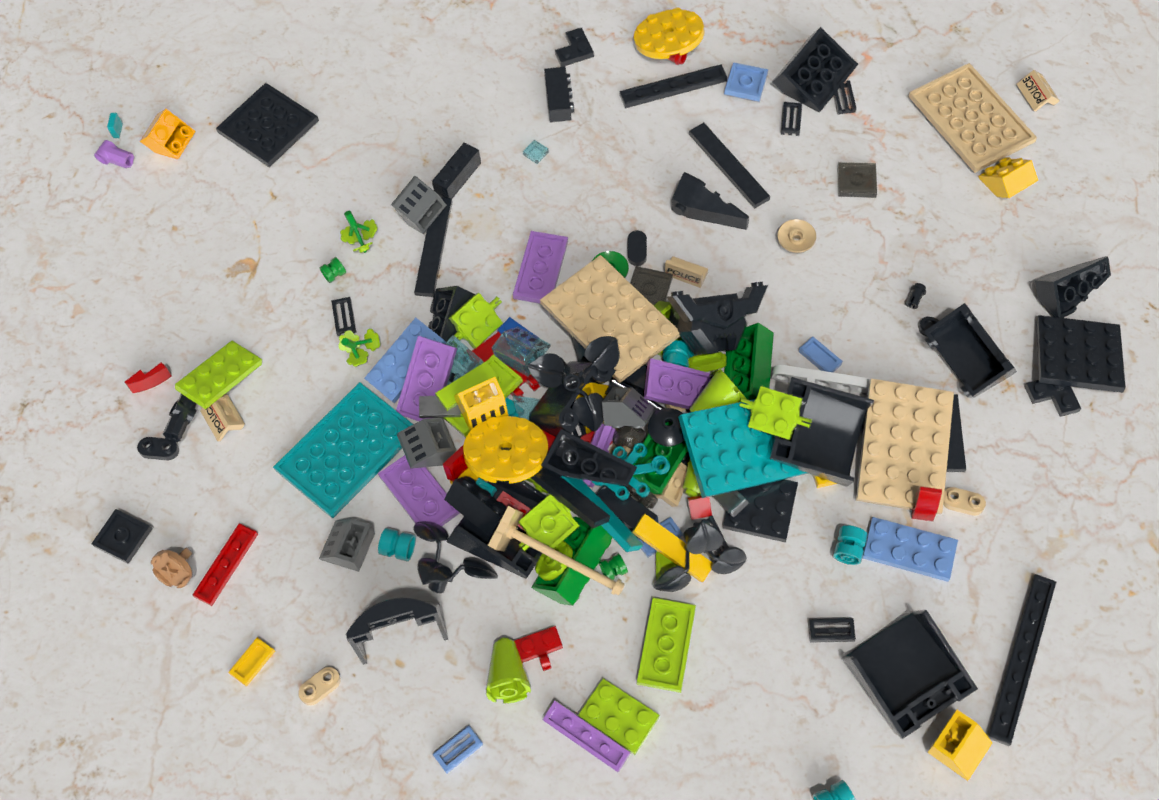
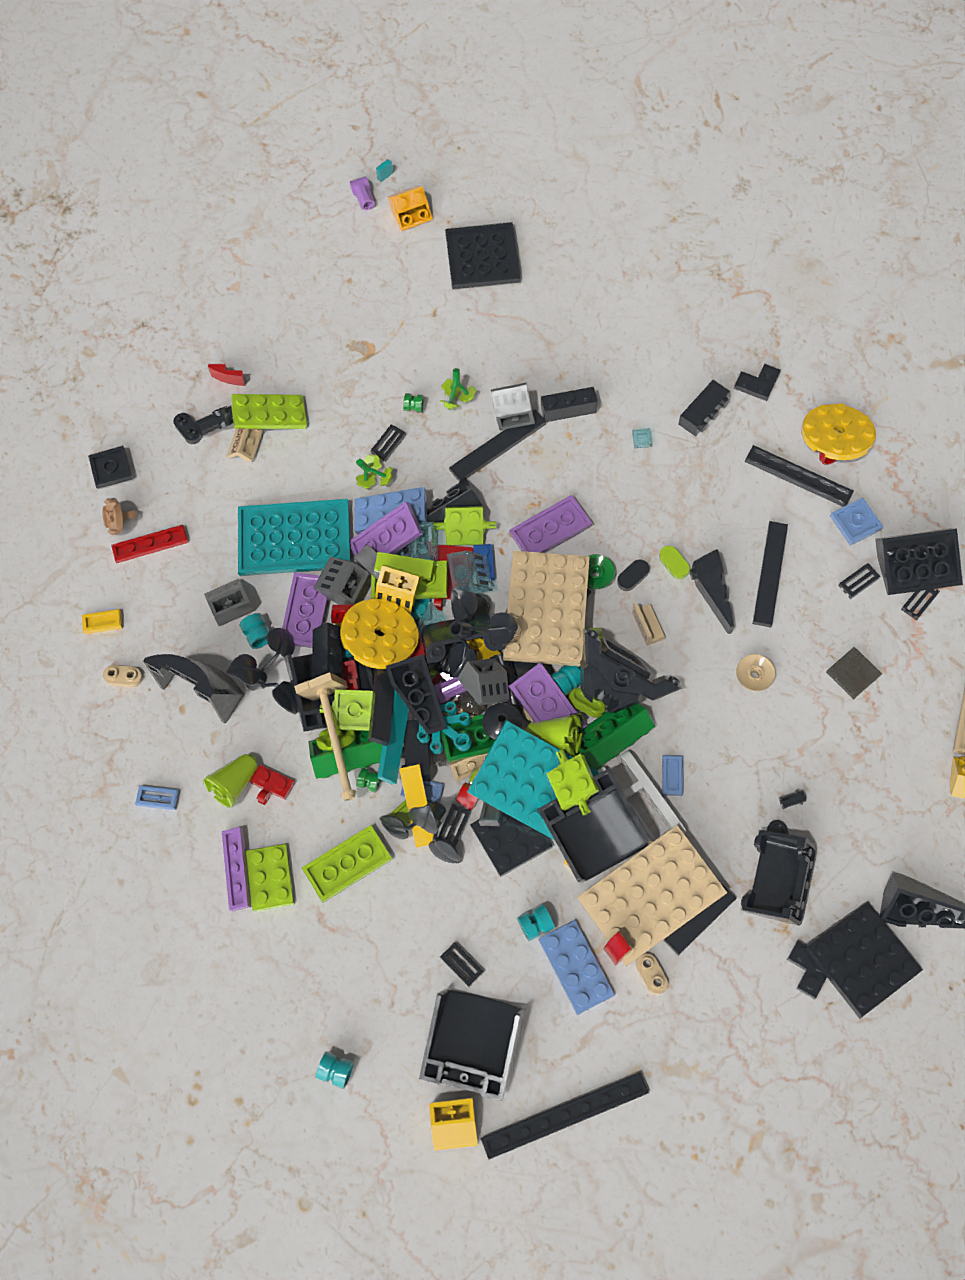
camera: 45 degrees right, 5 degrees up
(652, 283) = (609, 611): clear smoke tile -> none
(655, 214) = (674, 562): none -> lime tile

